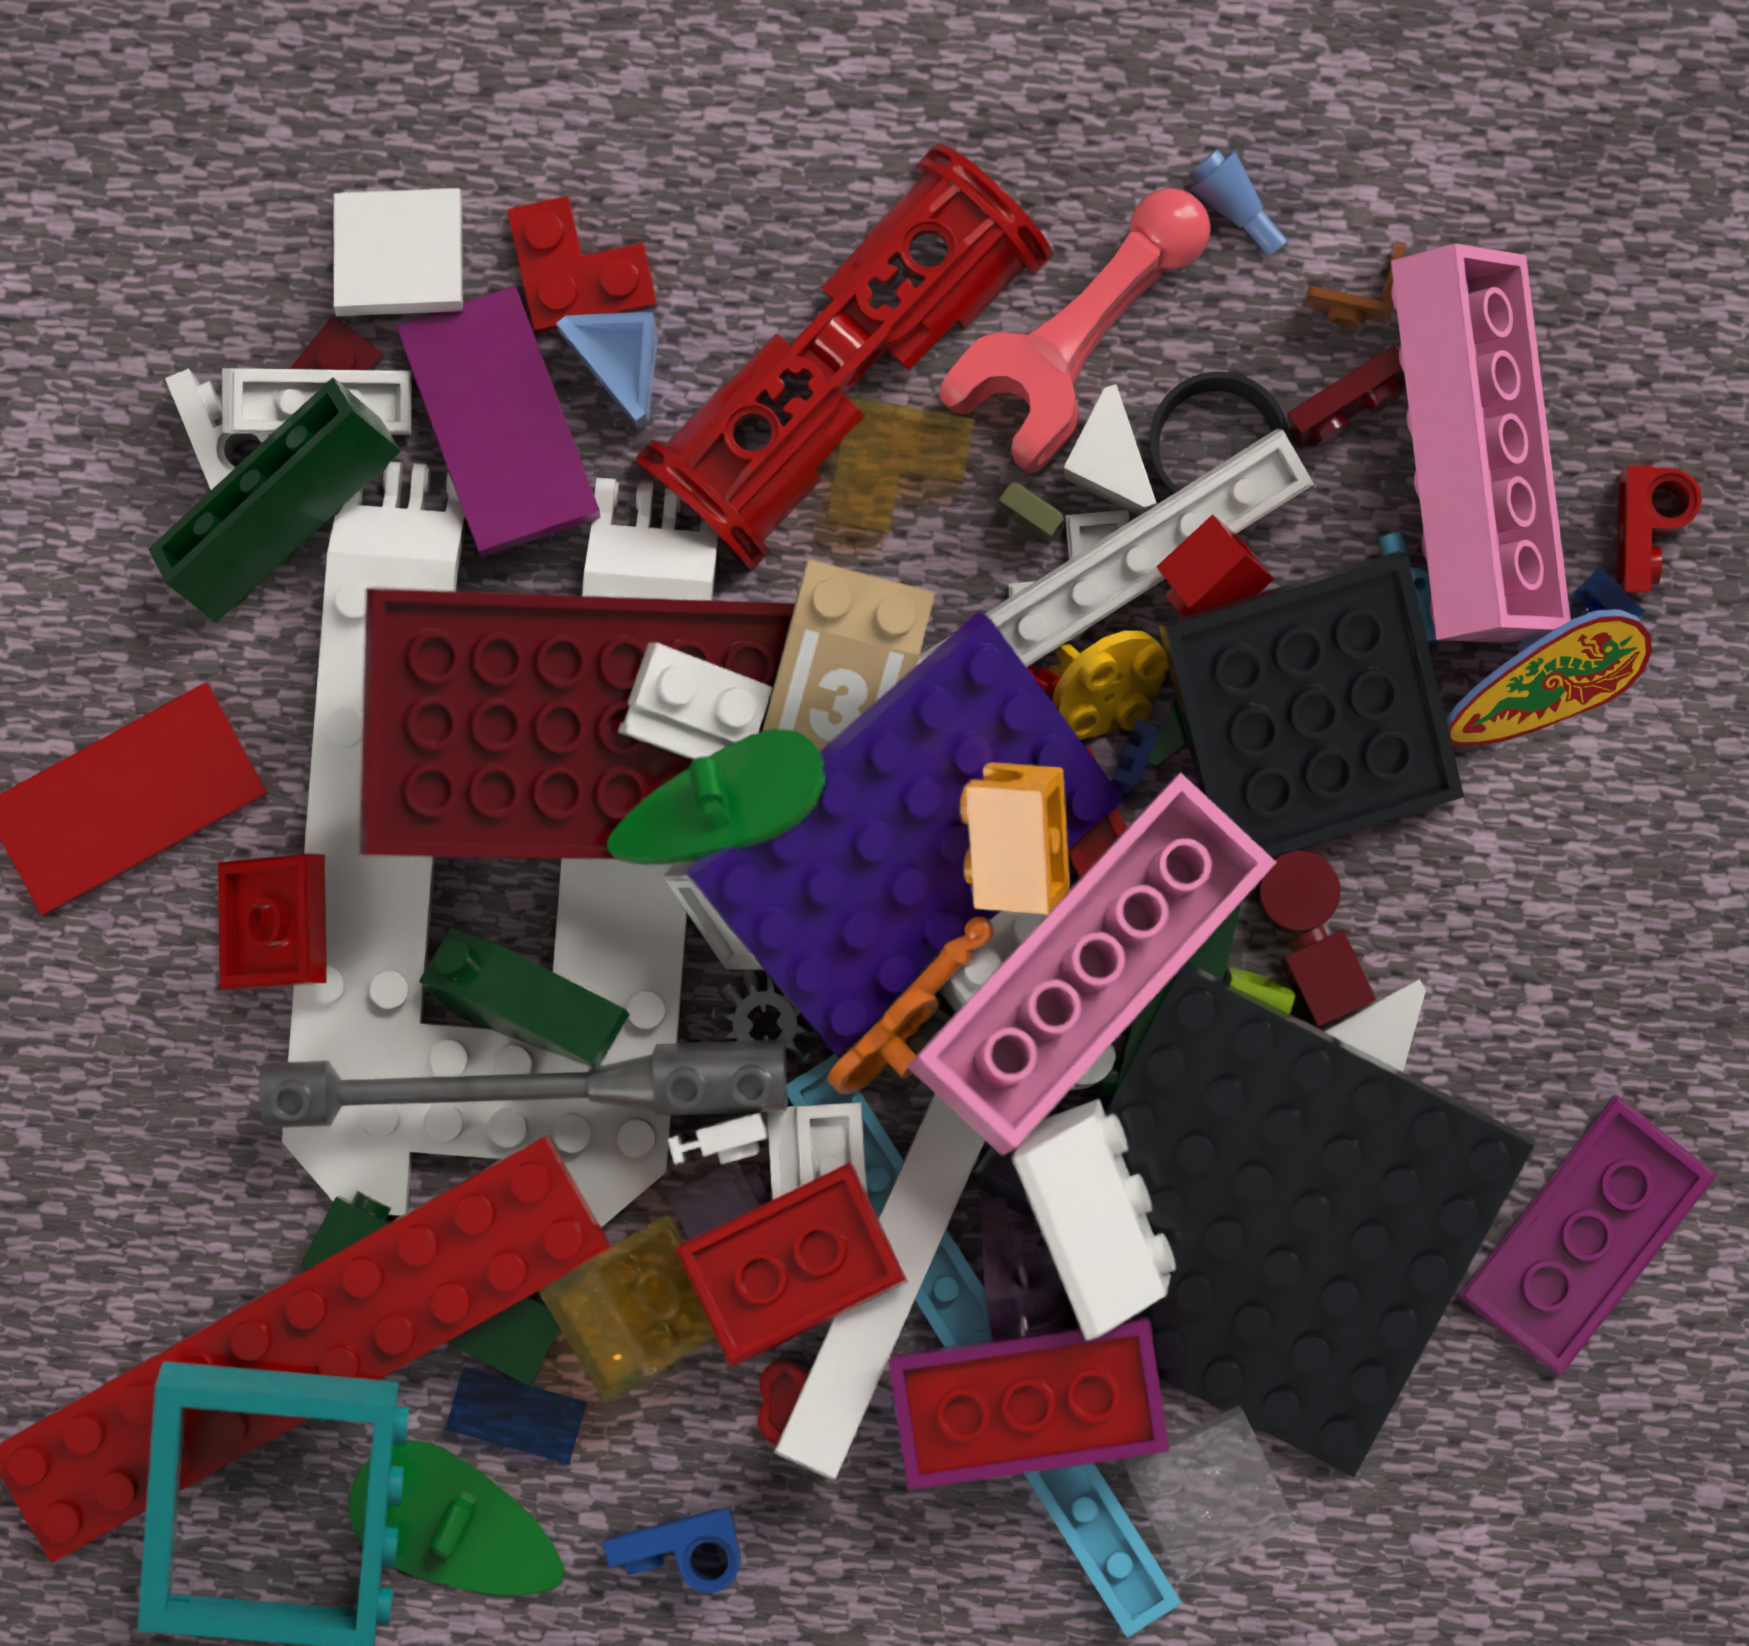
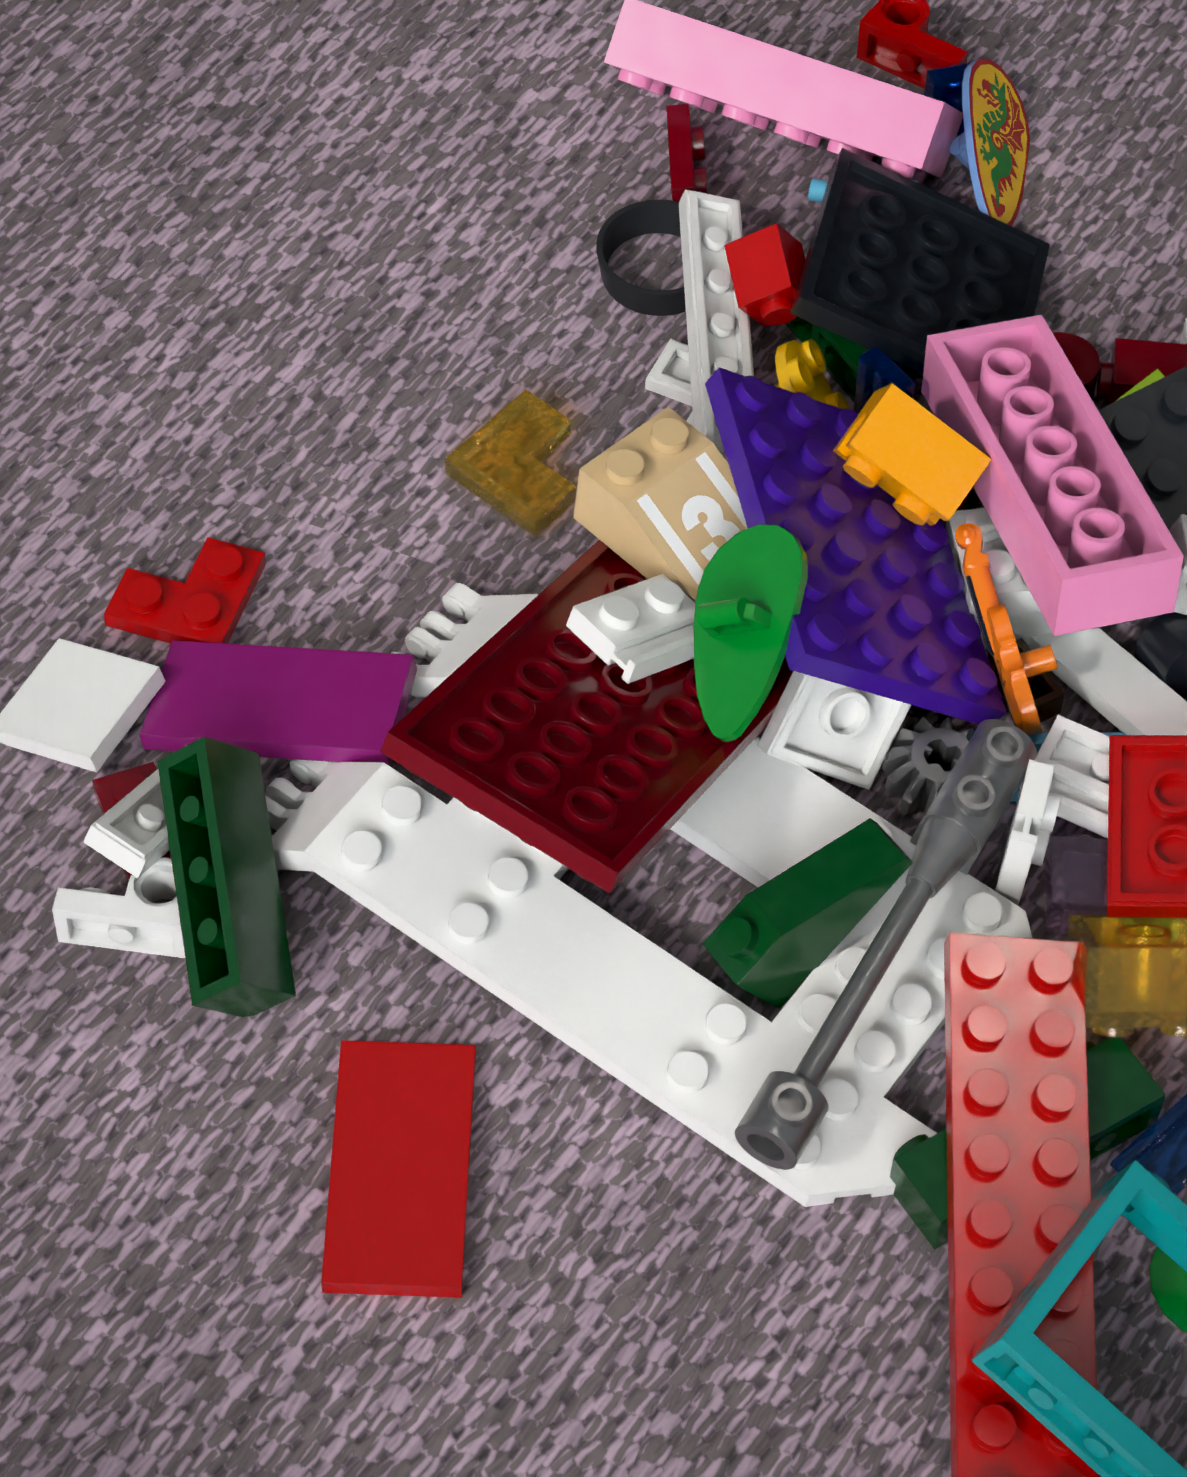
camera: 60 degrees left, 30 degrees down
(272, 922) = (601, 1088): red tile -> none
(619, 354) = (293, 586): light blue slope -> none
(752, 492) = (405, 553): red piece -> none
(1030, 512) = (628, 392): olive tile -> none
(1041, 367) = (518, 325): coral piece -> none
(1109, 459) = (625, 321): white slope -> none
(1229, 192) = (464, 162): medium blue cone -> none
(1351, 309) = (616, 126): dark orange bracket -> none

